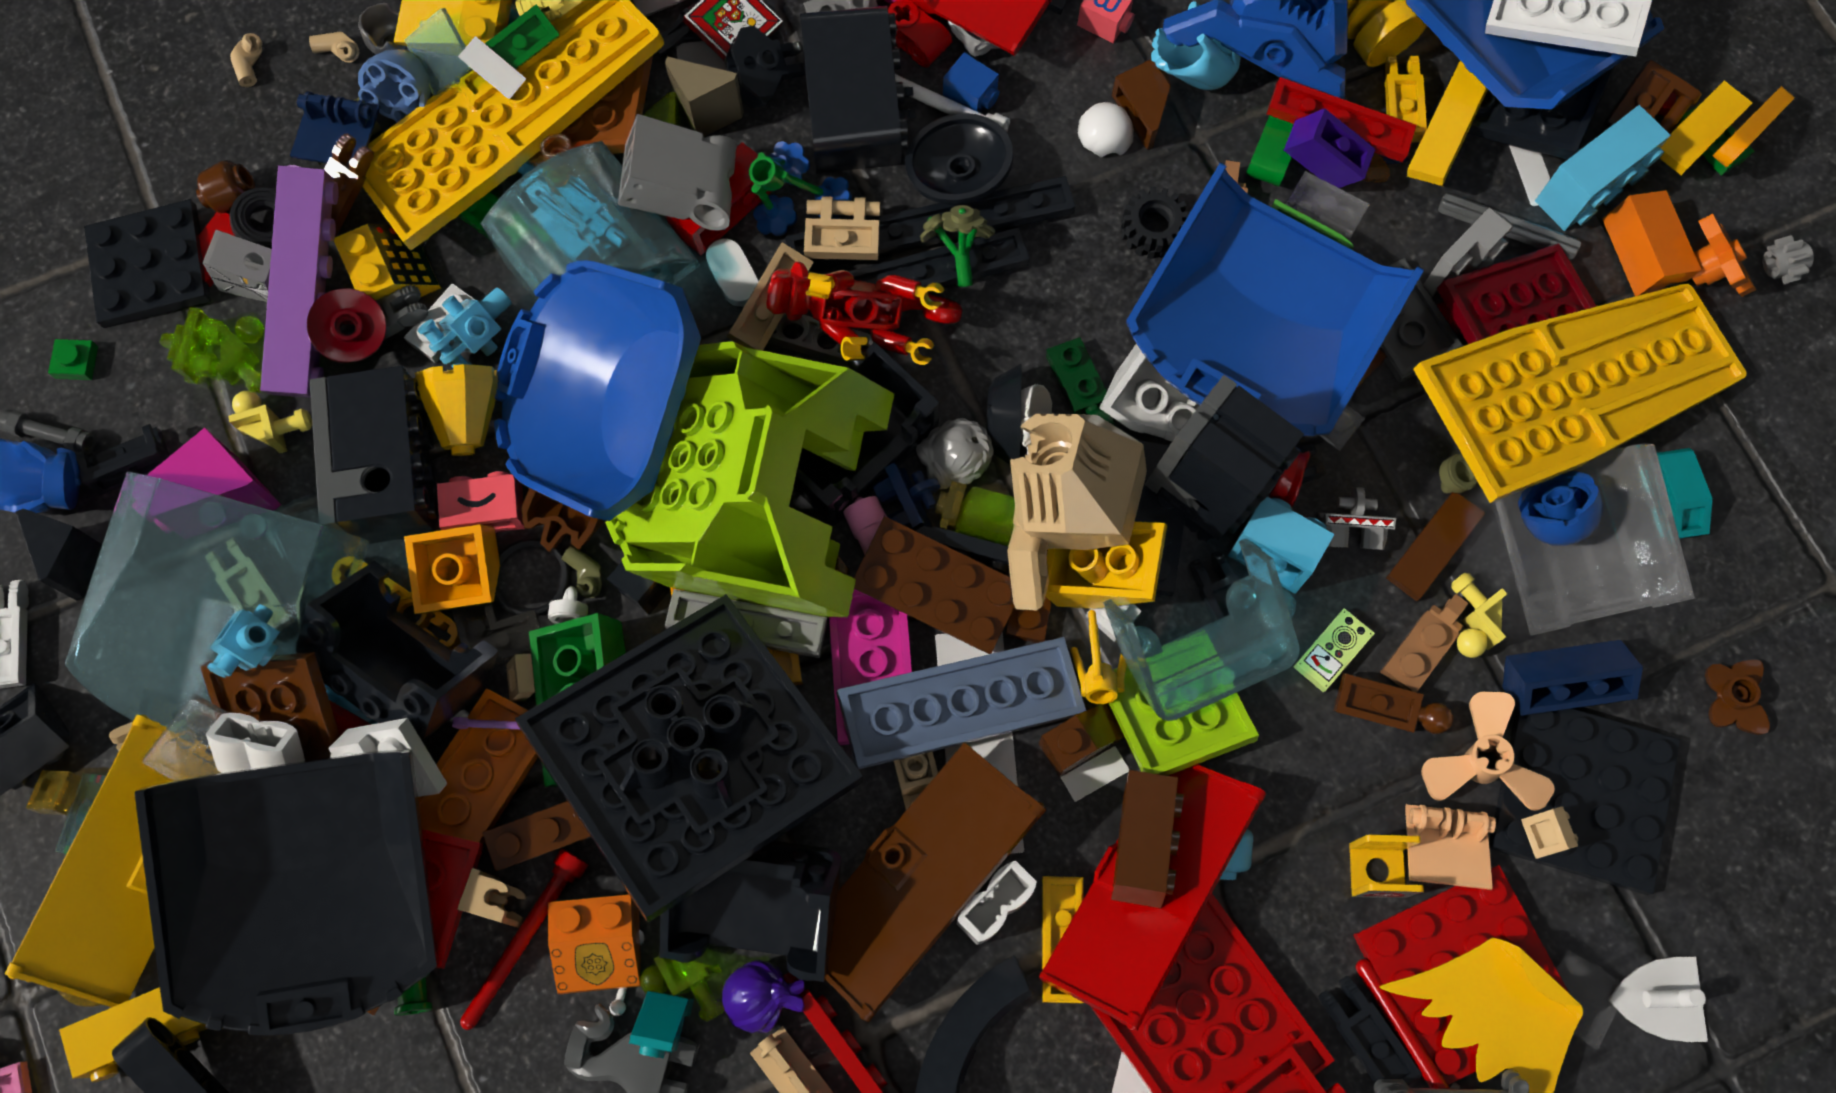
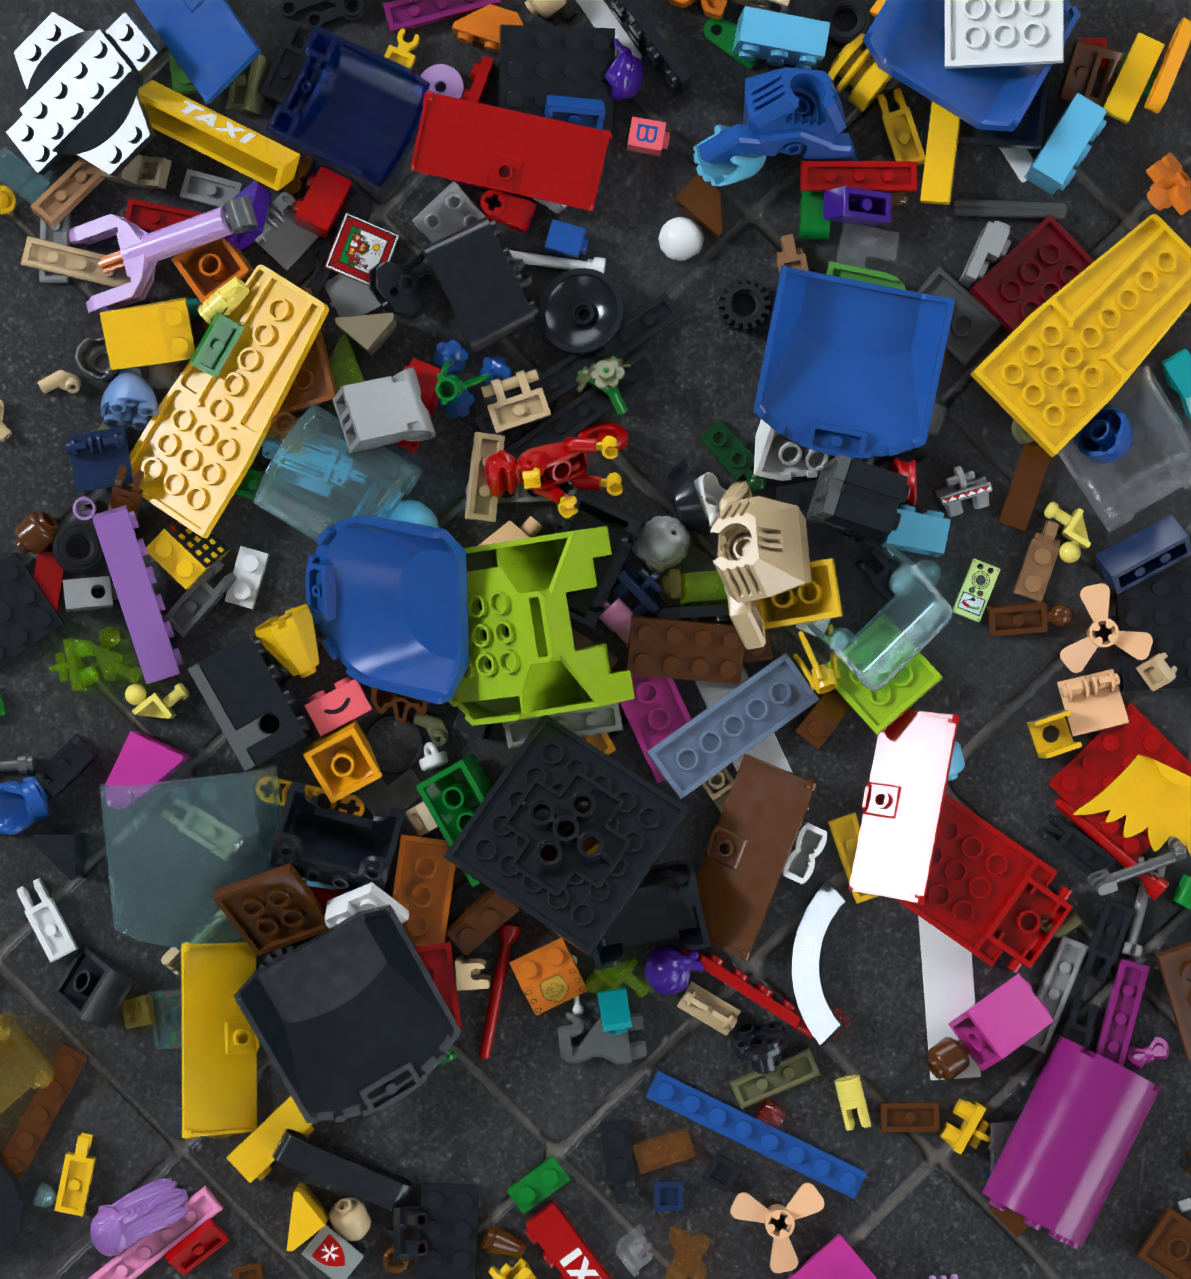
camera: 25 degrees left, 15 degrees up
(183, 746) = (224, 954): clear plate -> none
(244, 642) = (244, 875): medium azure piece -> none
(245, 743) = (276, 937): white brick -> none
(341, 308) = (202, 617): dark red dish -> none
(438, 48) = (157, 371): clear light blue piece -> none
(464, 723) = (442, 850): medium lavender hinge -> none
(469, 325) = (270, 580): medium azure piece -> none
(492, 67) = (206, 375): white sticker -> none
(731, 271) = (444, 460): white tile -> none
(1095, 774) = (840, 737): white sticker -> none
(1147, 839) = (890, 776): reddish brown brick -> none
(1651, 242) = (1118, 190): orange piece -> none

